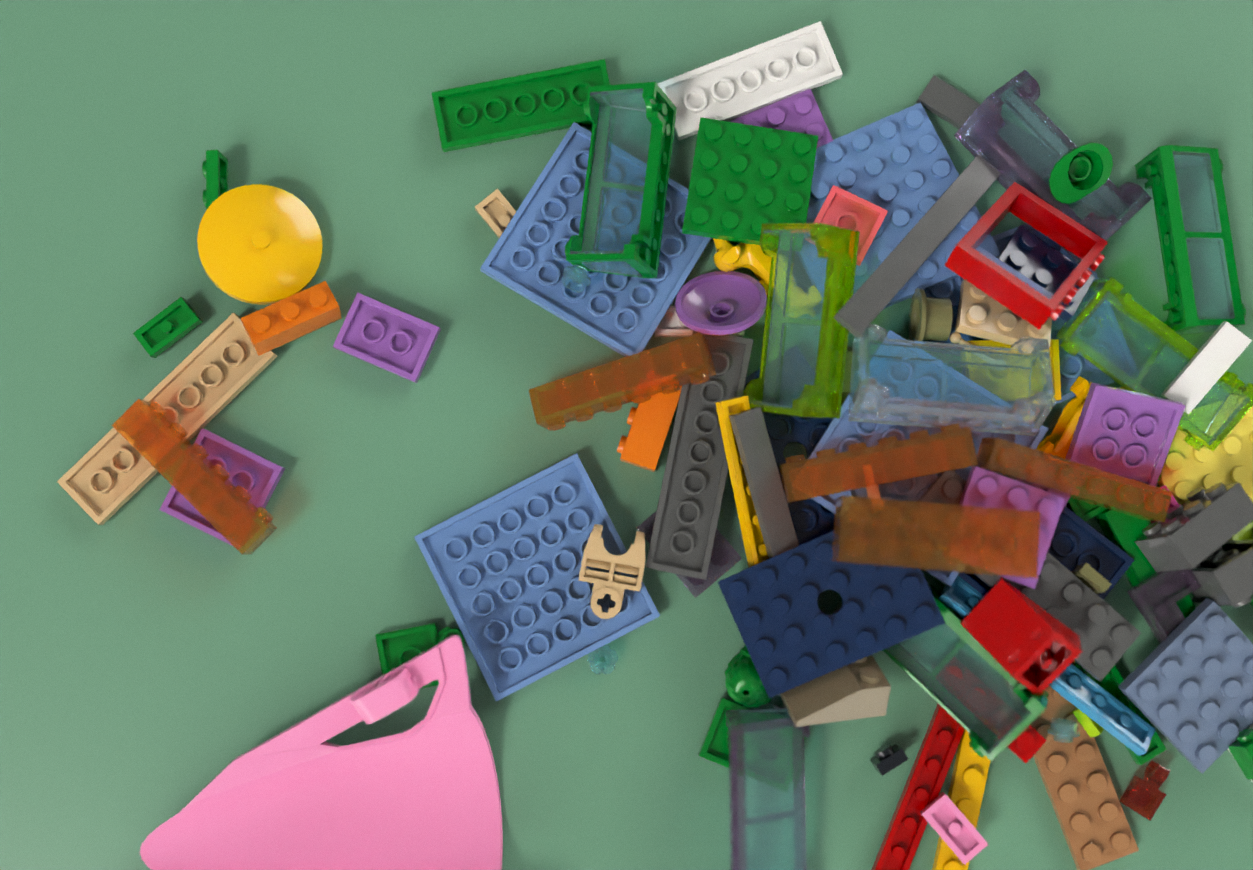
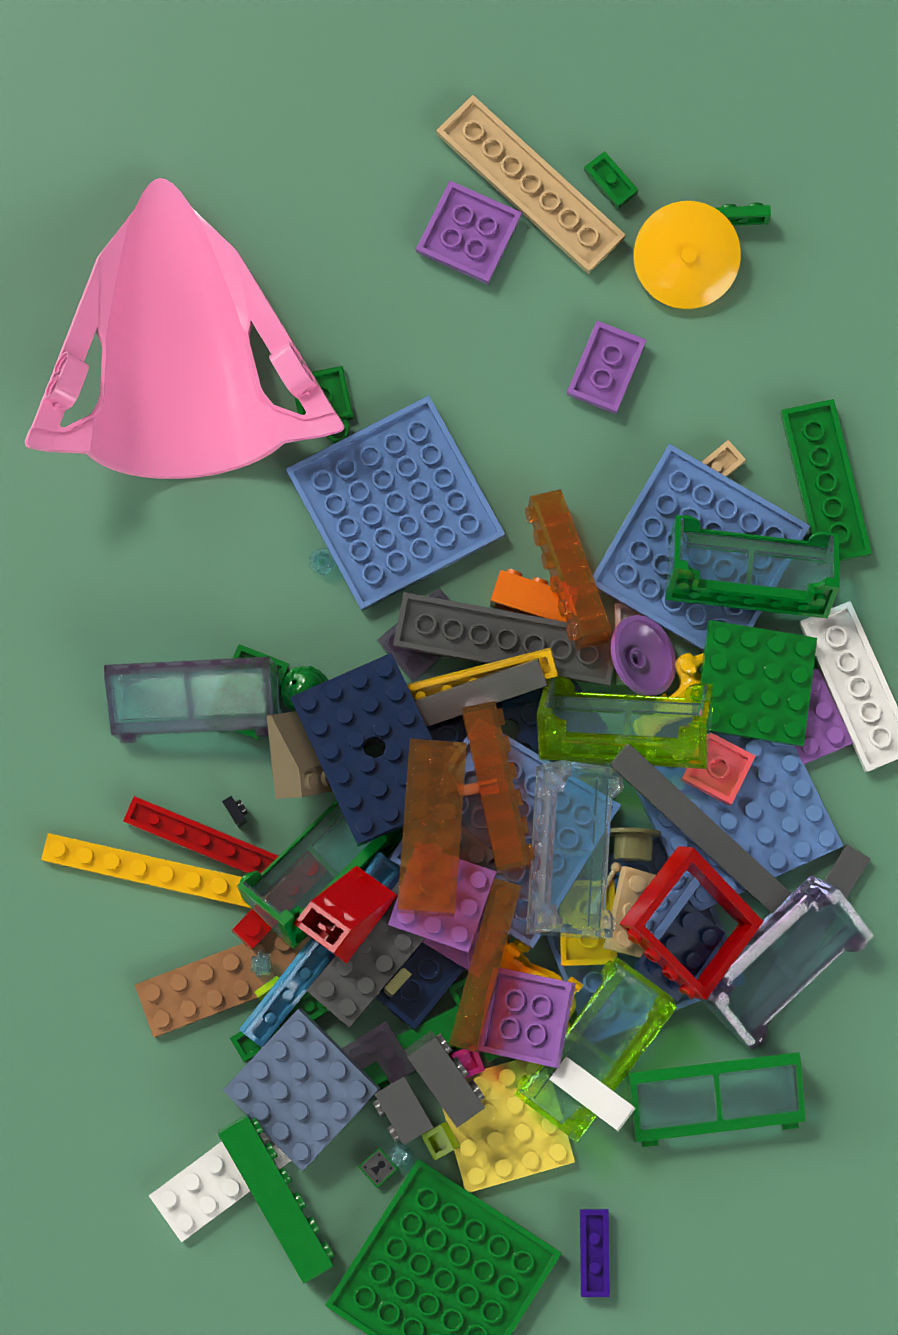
camera: 90 degrees right, 5 degrees down
(194, 476) = (478, 209): clear orange brick -> none
(291, 318) = (620, 283): orange brick -> none
(576, 278) = (661, 526): clear light blue plate -> none
(609, 583) = (388, 559): tan piece -> none
(954, 828) = (176, 864): bright pink plate -> none
(1080, 172) = (772, 980): green piece -> none
(1144, 795) = (203, 1042): clear red plate -> none

